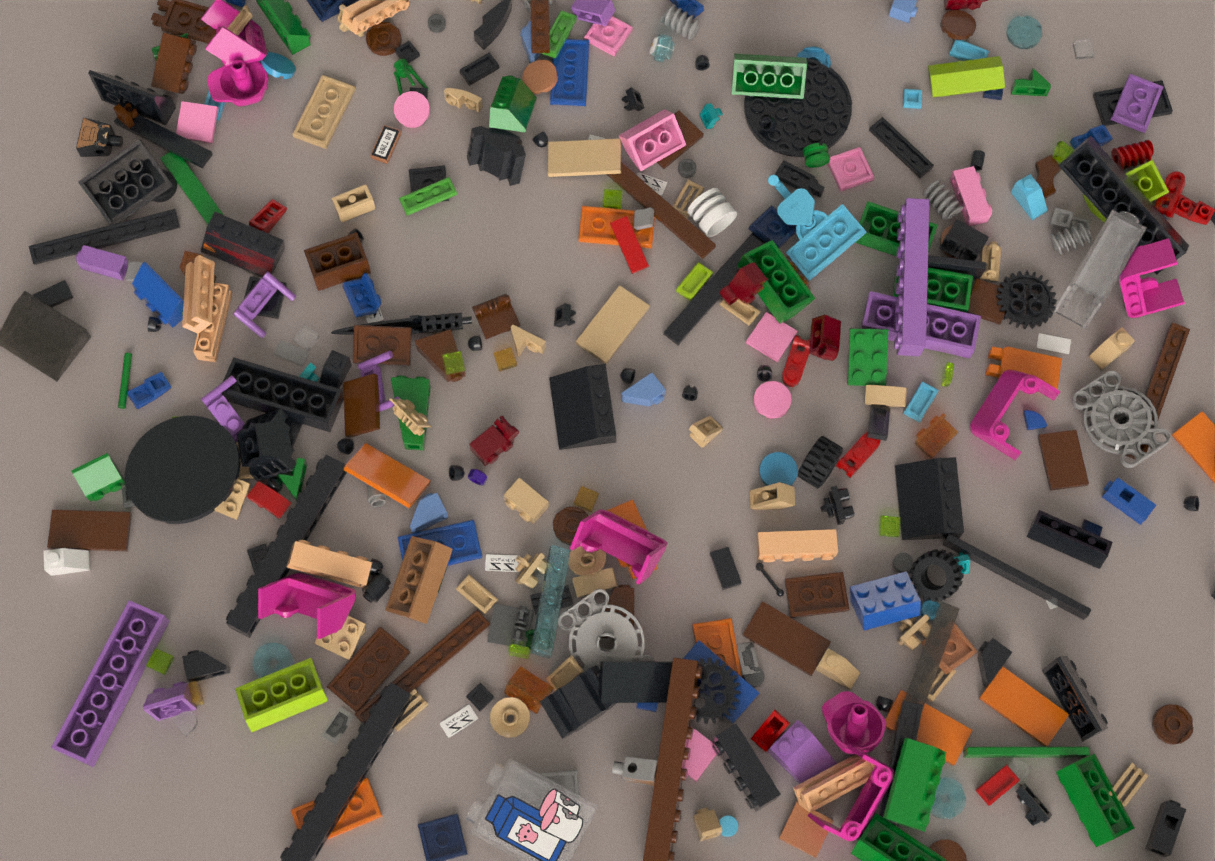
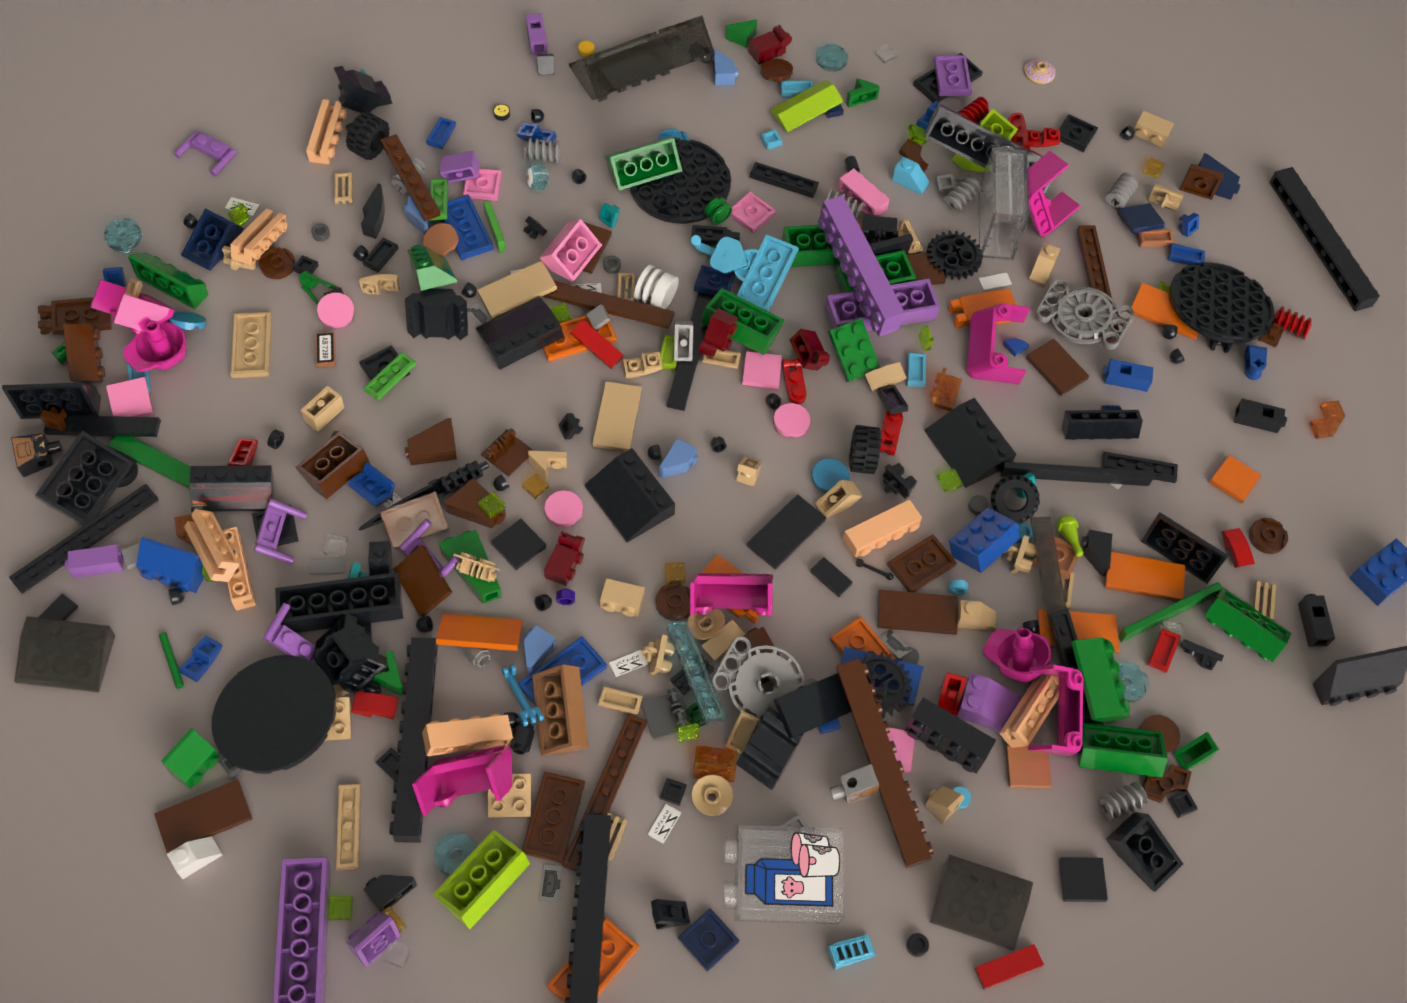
camera: 30 degrees left, 10 degrees down
(198, 595) = (348, 827): none -> tan tile
(301, 214) = (275, 439): none -> black tile
(391, 569) = (527, 712): none -> dark azure hinge
(420, 801) = (669, 913): none -> black slope
(434, 280) = (432, 444): none -> reddish brown slope
(461, 59) = (361, 253): none -> black hinge
(462, 408) = (518, 544): none -> black tile
(518, 392) = (563, 508): none -> bright pink tile
(539, 168) = (478, 313): none -> sticker
(564, 202) = (520, 332): none -> black slope
(595, 83) = (494, 226): none -> bright green tile
(661, 284) = (642, 366): none -> tan slope
(708, 506) = (786, 531): none -> black tile
(709, 276) = (683, 340): none -> light grey slope
(836, 633) = (958, 587): none -> medium azure tile
(975, 625) = (1068, 526): none -> lime piece
(1071, 587) = (1162, 470): none -> black tile
(1133, 722) = (1240, 549): none -> red slope
(1174, 653) = (1235, 479): none -> orange tile
(1200, 474) = (1170, 331): none -> black hinge

